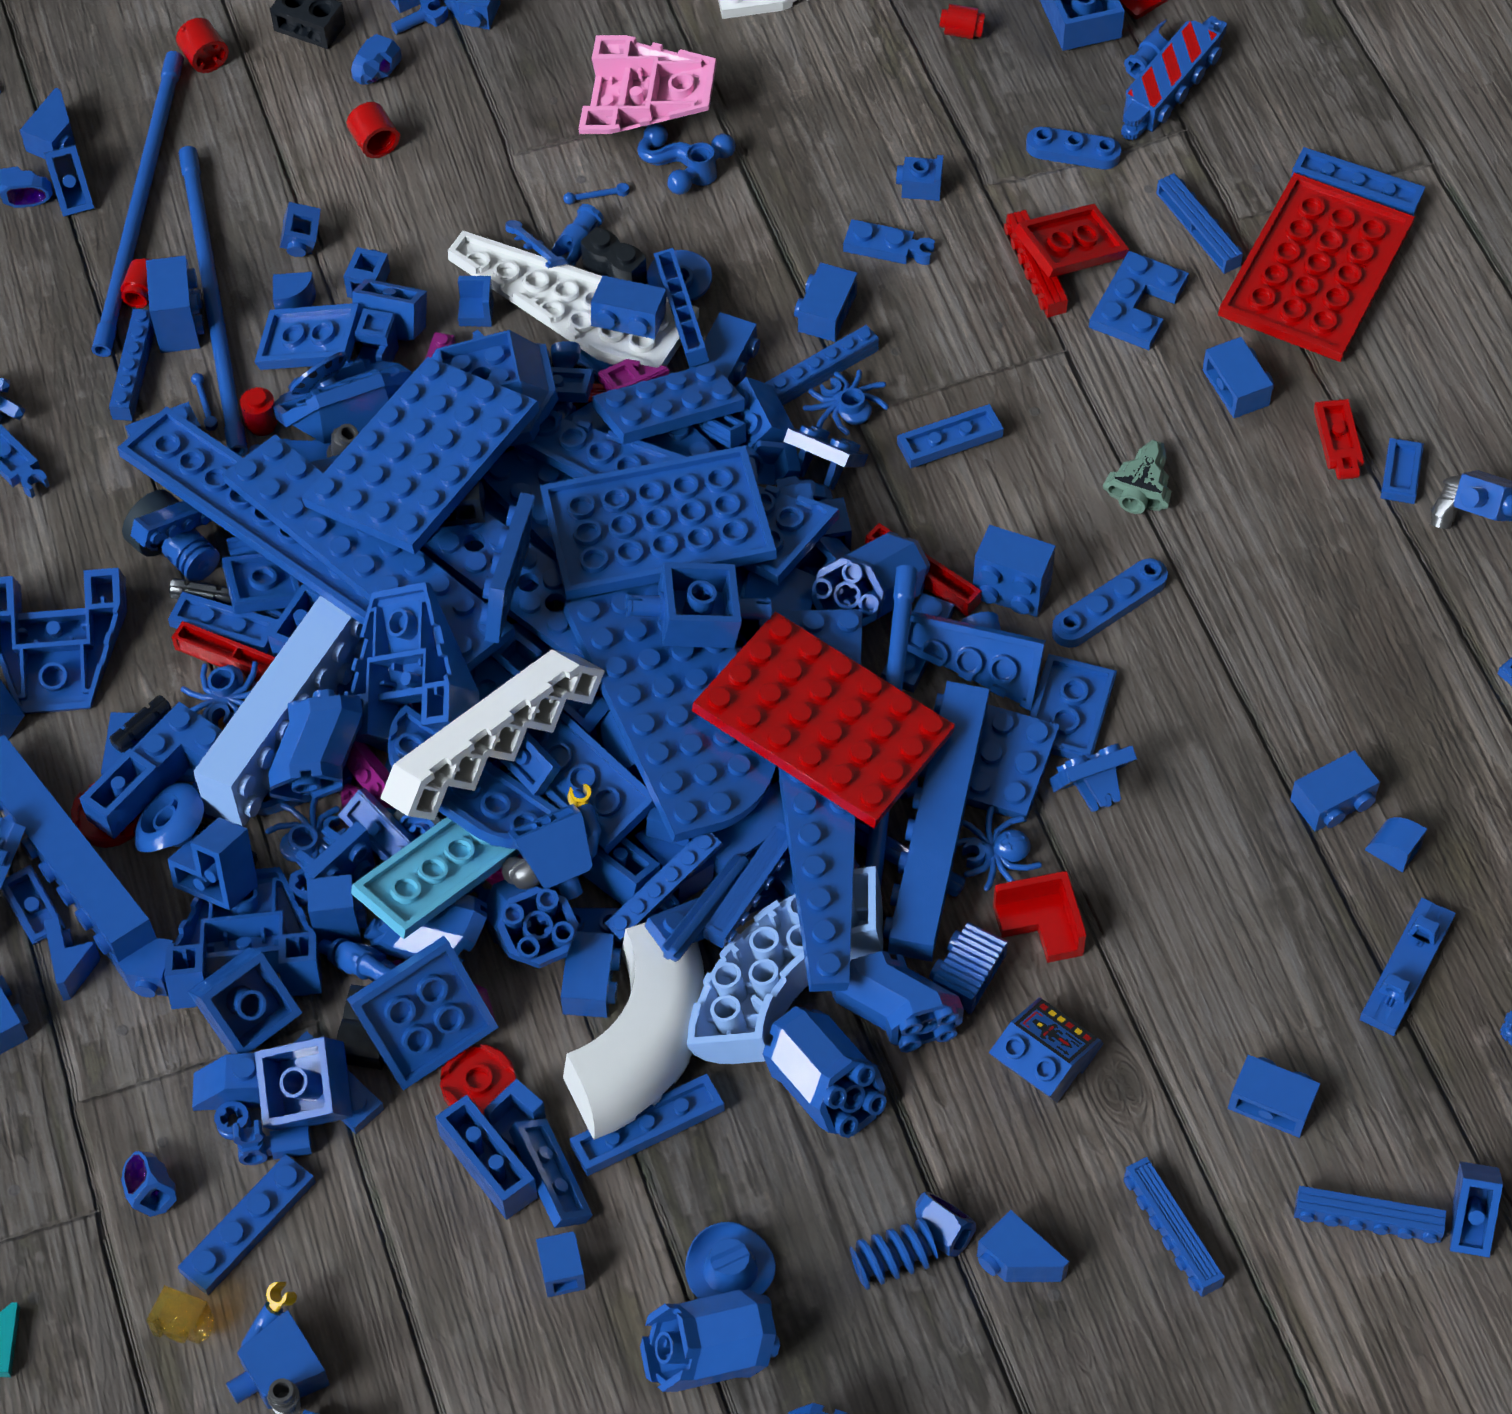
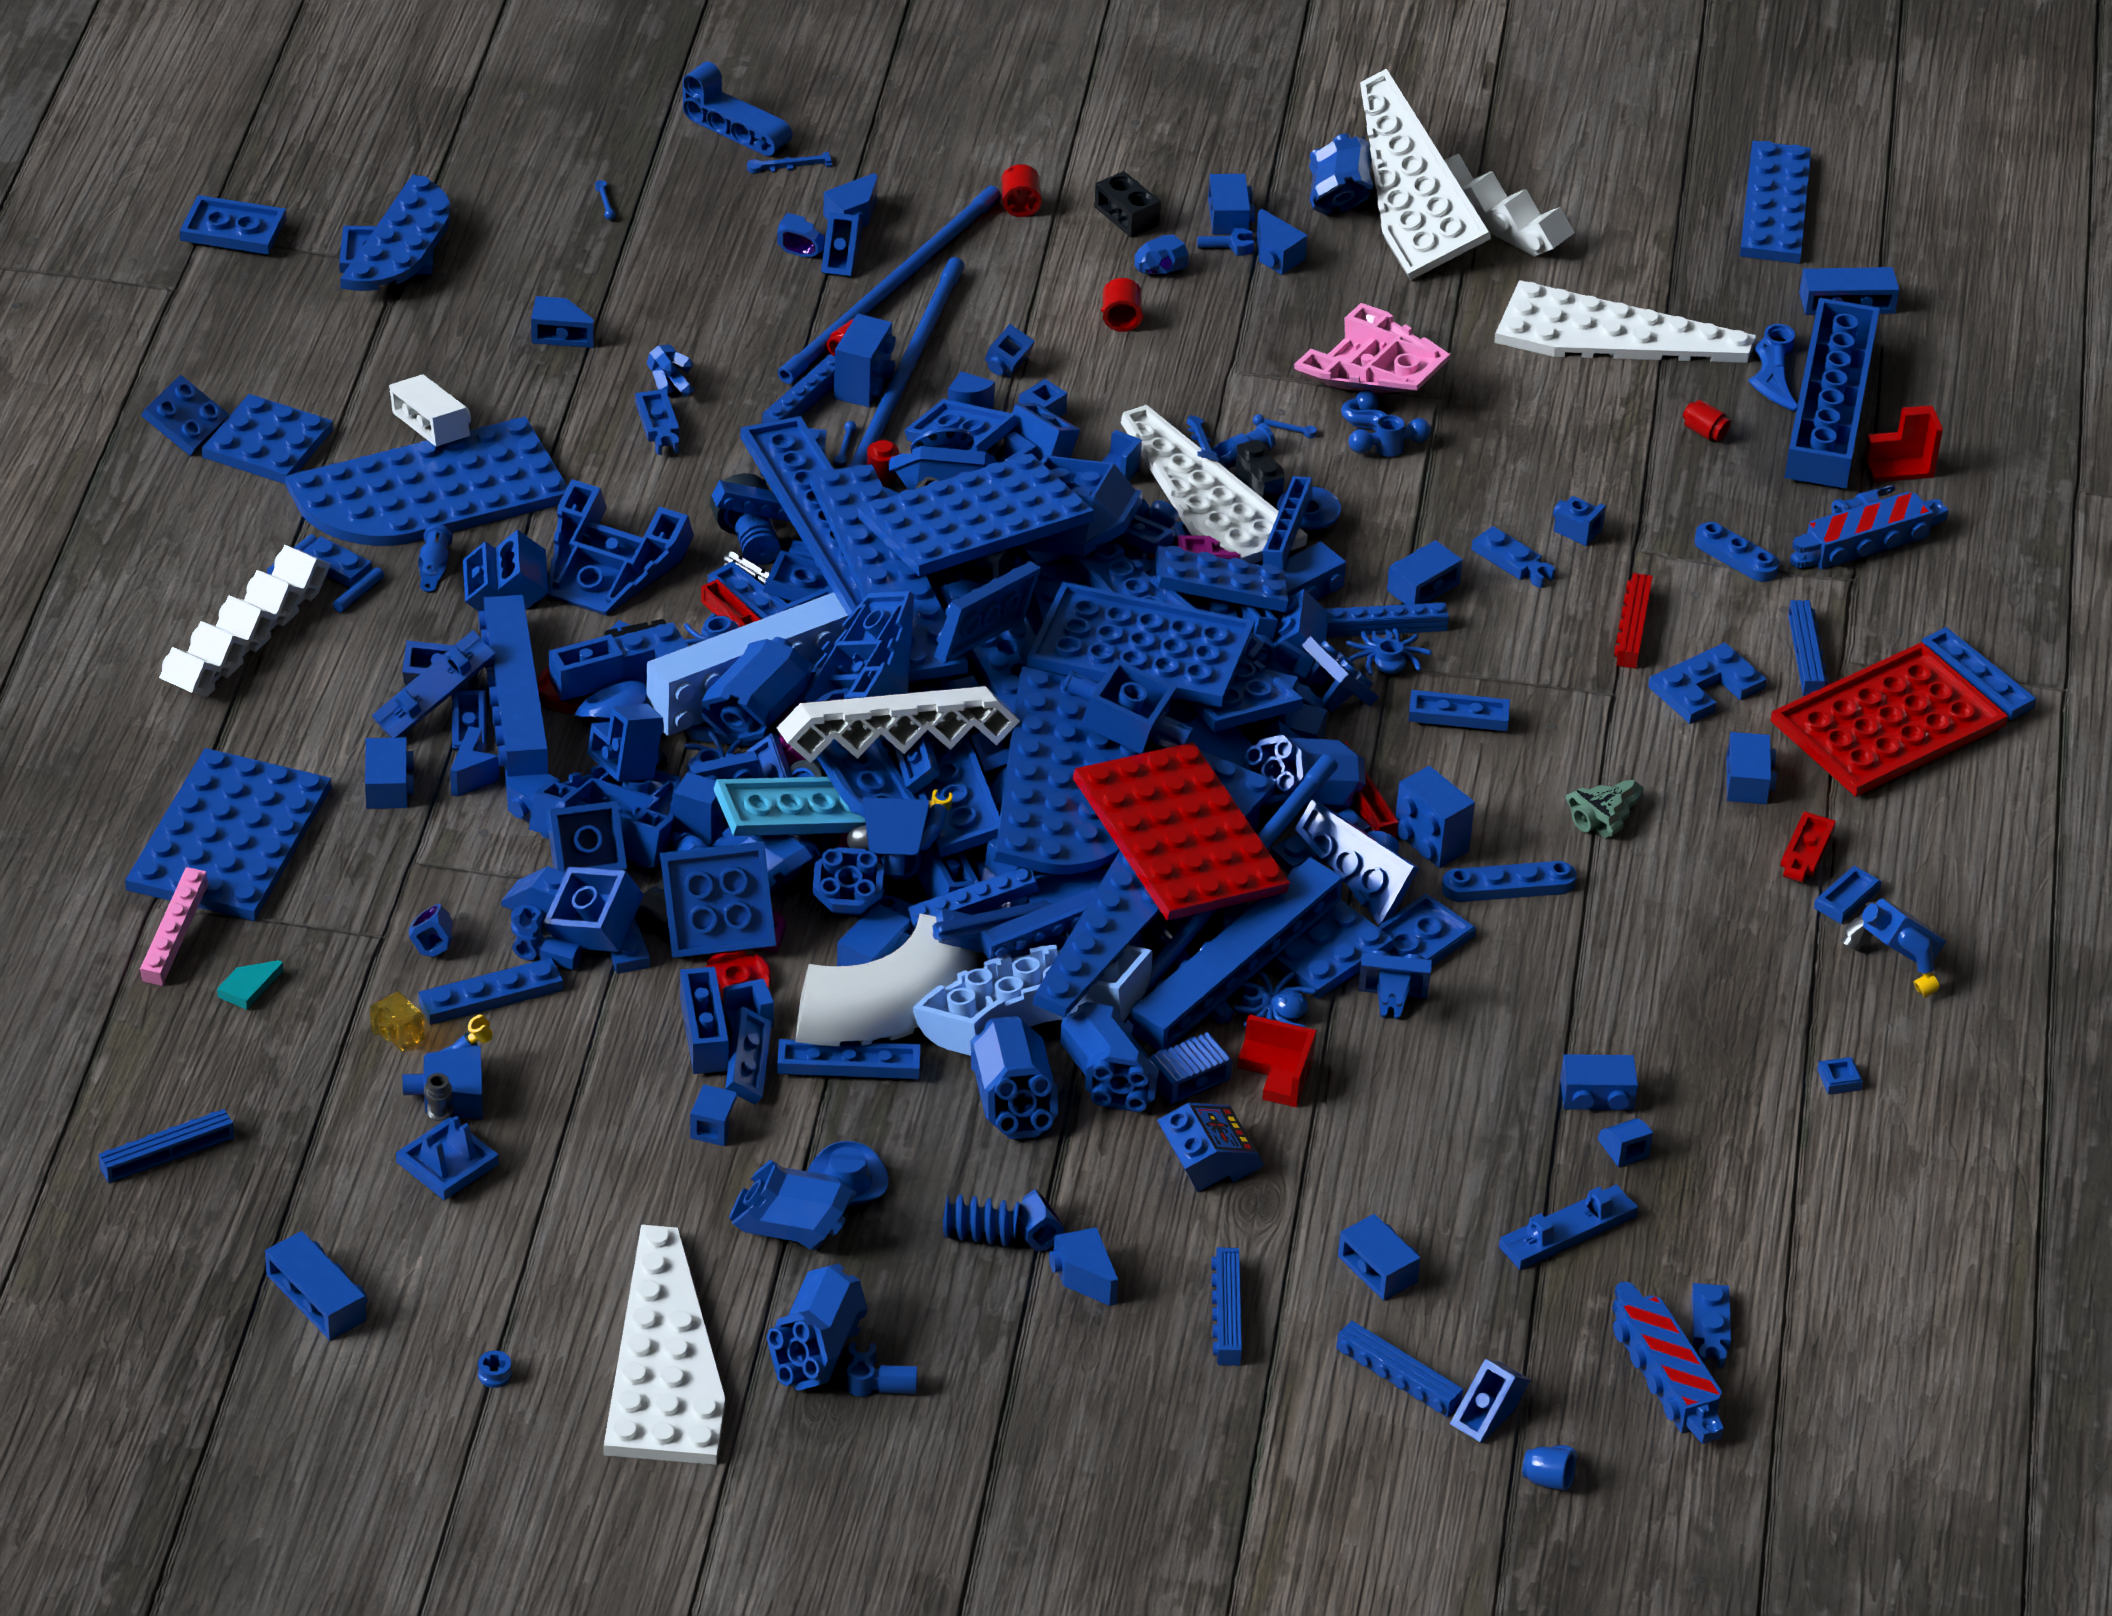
camera: 25 degrees right, 15 degrees down
(375, 327) = (1018, 438): blue tile -> none
(628, 307) = (1241, 504): blue brick -> none
(1071, 240) = (1674, 611): red plate -> none

